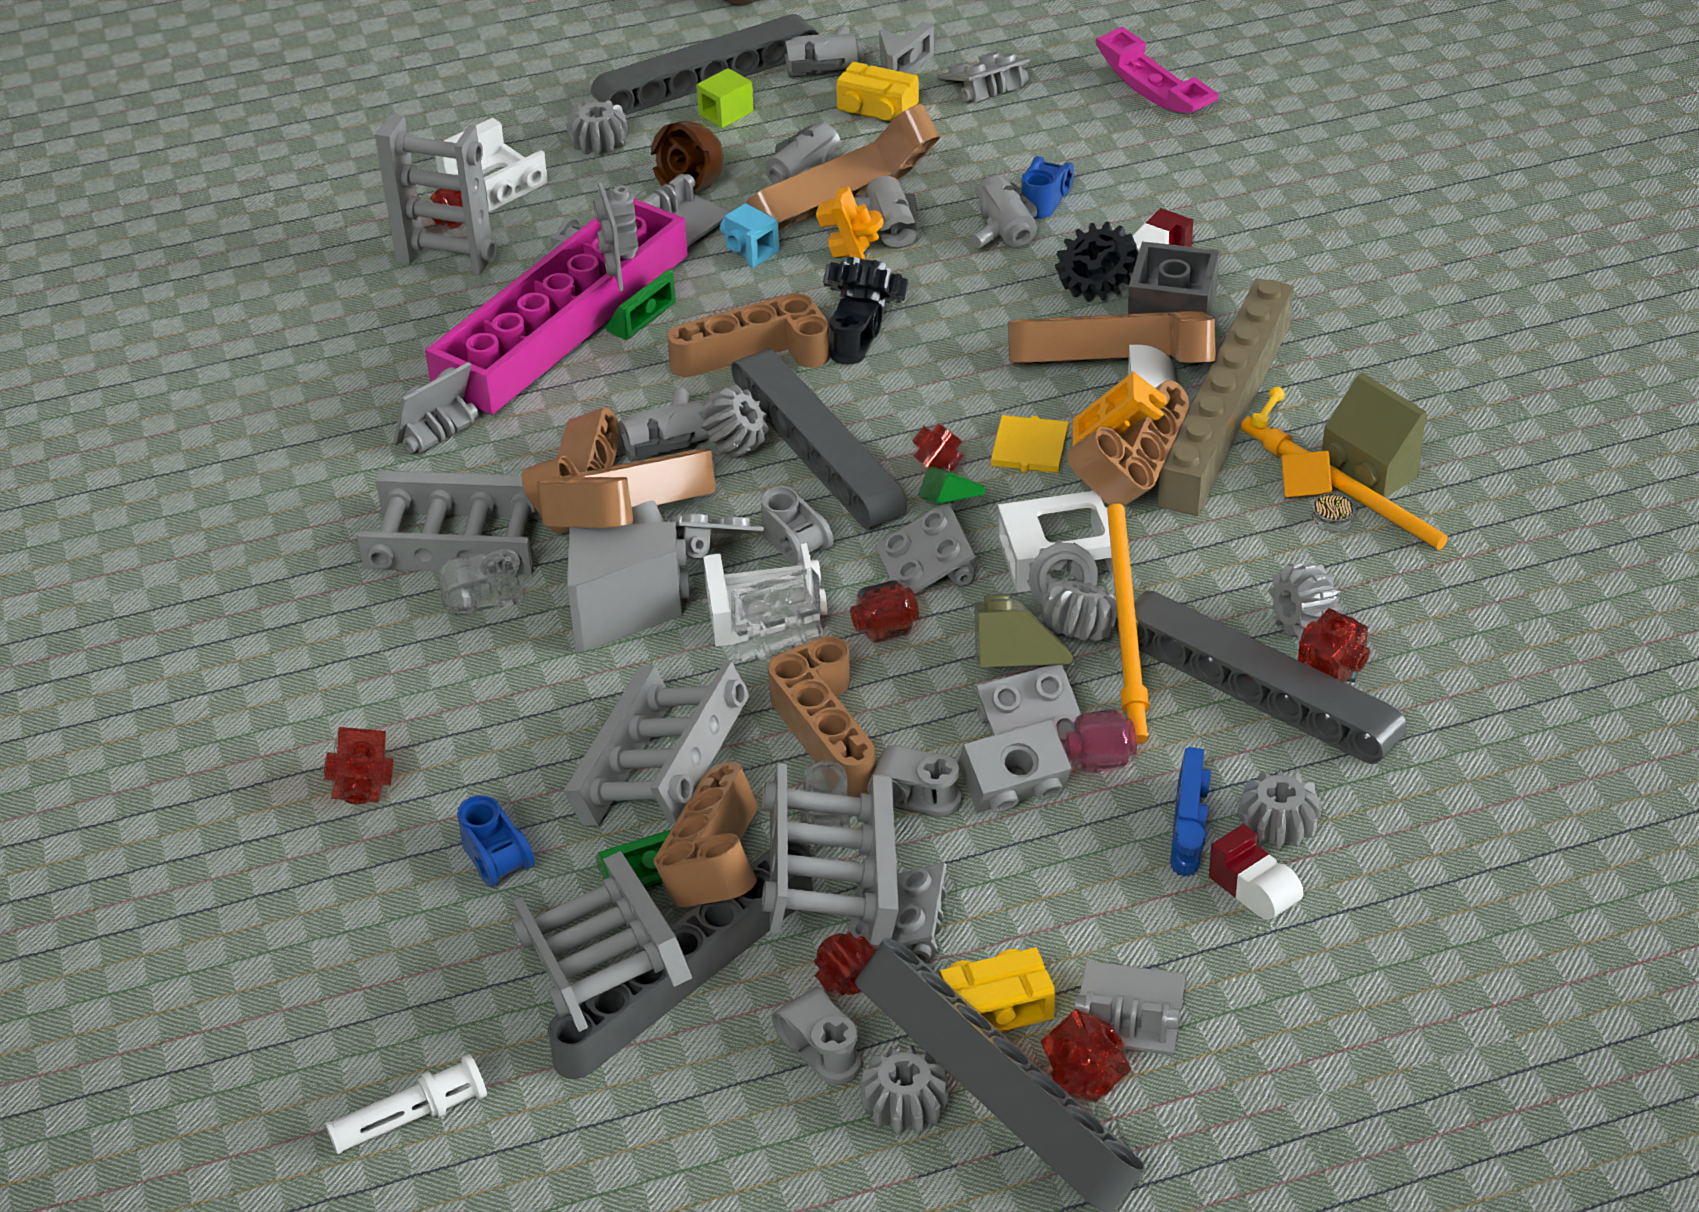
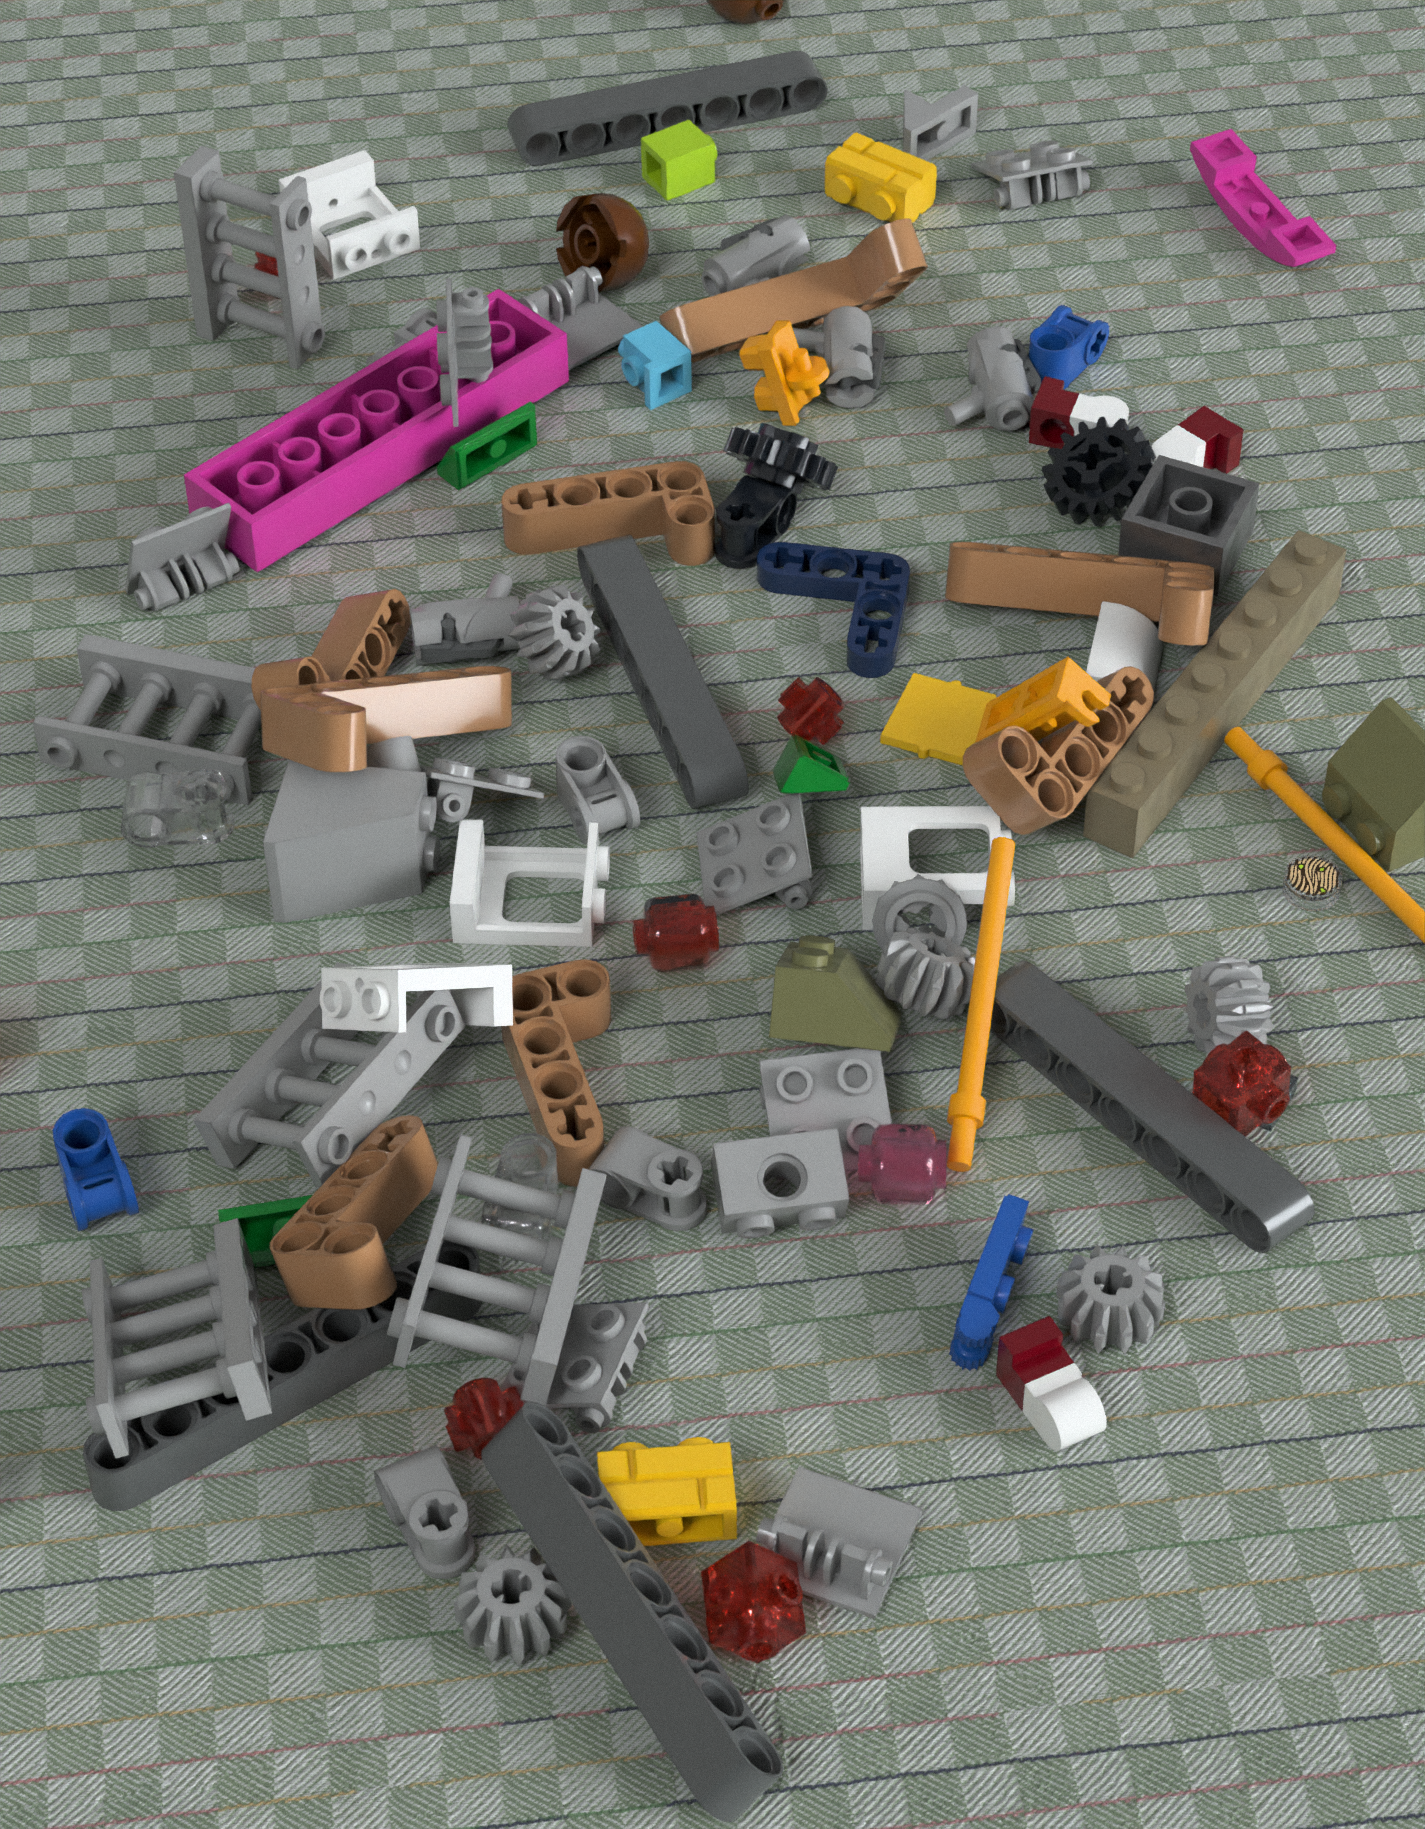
camera: 10 degrees right, 5 degrees up
(597, 127) = (500, 179): light grey gear -> none
(692, 676) = (376, 994): none -> white window
(773, 603) = (530, 902): clear plate -> none
(822, 53) = (824, 111): light grey piece -> none
(948, 356) = (868, 593): none -> dark blue beam
(1057, 225) = (1061, 411): none -> dark red leg
(1260, 419) = (1250, 735): yellow hinge -> none
(1306, 474) = (1288, 824): light orange slope -> none

